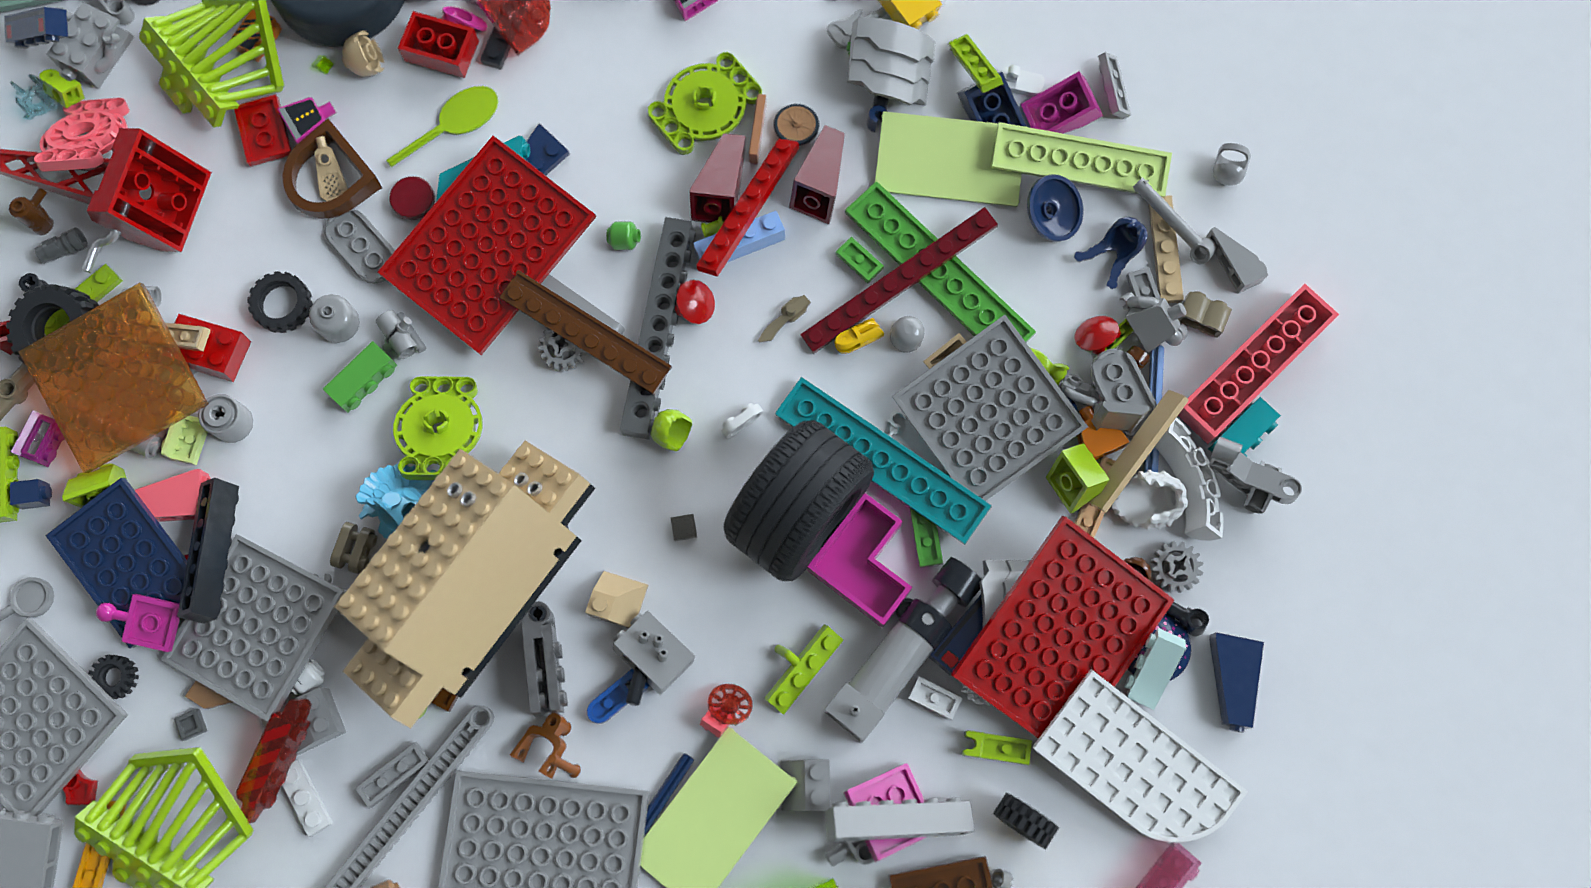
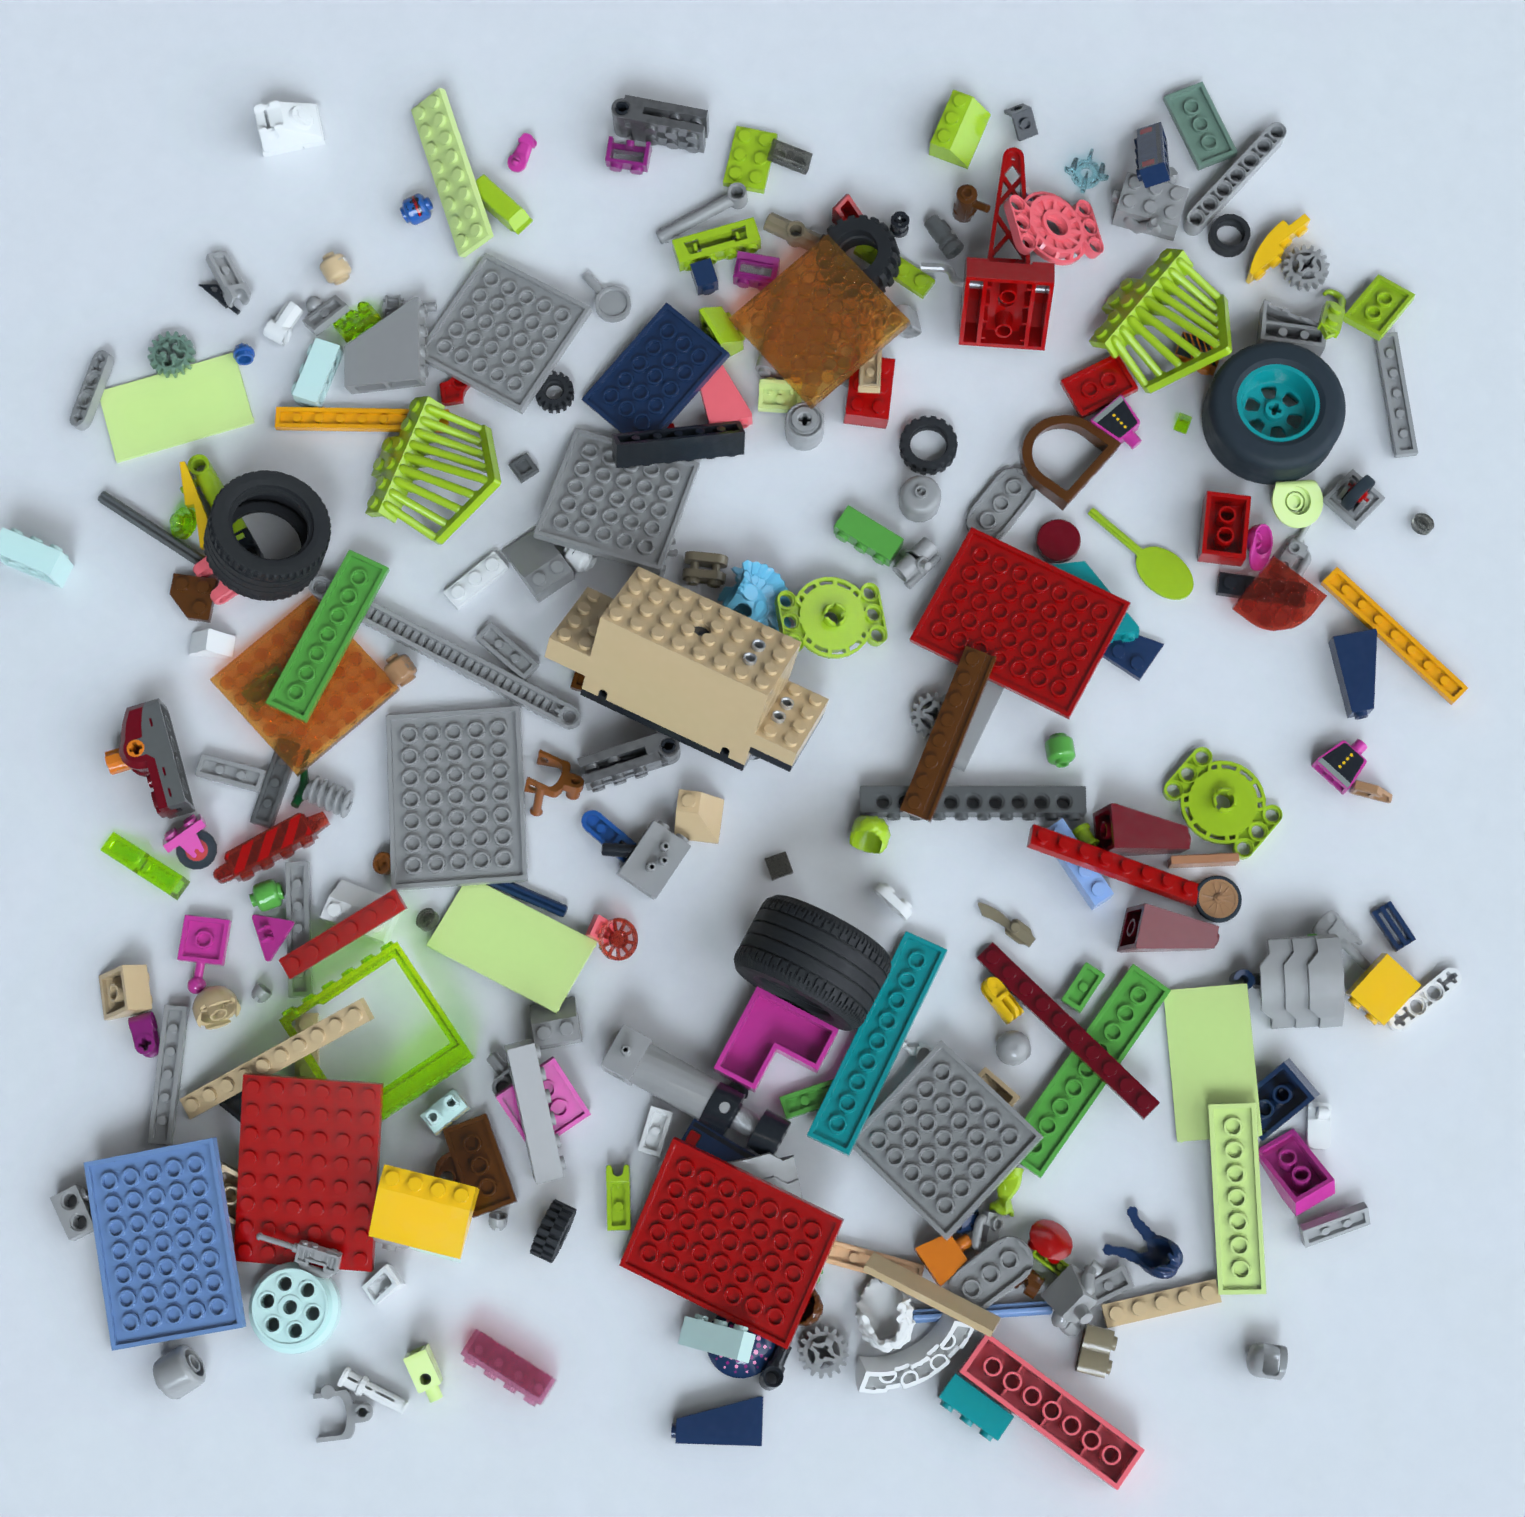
camera: 80 degrees right, 0 degrees up
(60, 89) = (1098, 191): lime leg -> none
(148, 622) = (605, 410): dark pink plate -> none
(205, 696) = (549, 473): medium nougat tile -> none
(273, 758) = (504, 546): clear red hinge -> none
(328, 170) = (1070, 456): tan piece -> none
(362, 55) = (1197, 459): tan cylinder -> none
(695, 302) = (1004, 832): red dish -> none
(802, 667) = (663, 1001): lime plate -> none
(975, 63) = (1321, 1069): lime tile -> none
(1062, 205) = (1182, 1189): dark blue dish -> none
(1076, 477) = (894, 1237): lime slope -> none
(1118, 415) = (962, 1267): light grey slope -> none
(1137, 765) = (622, 1334): white plate -> none
(1177, 223) = (1166, 1339): light grey piece -> none
(1238, 262) = (1159, 1382): light grey slope -> none
(1257, 481) = (922, 1425): light grey connector -> none

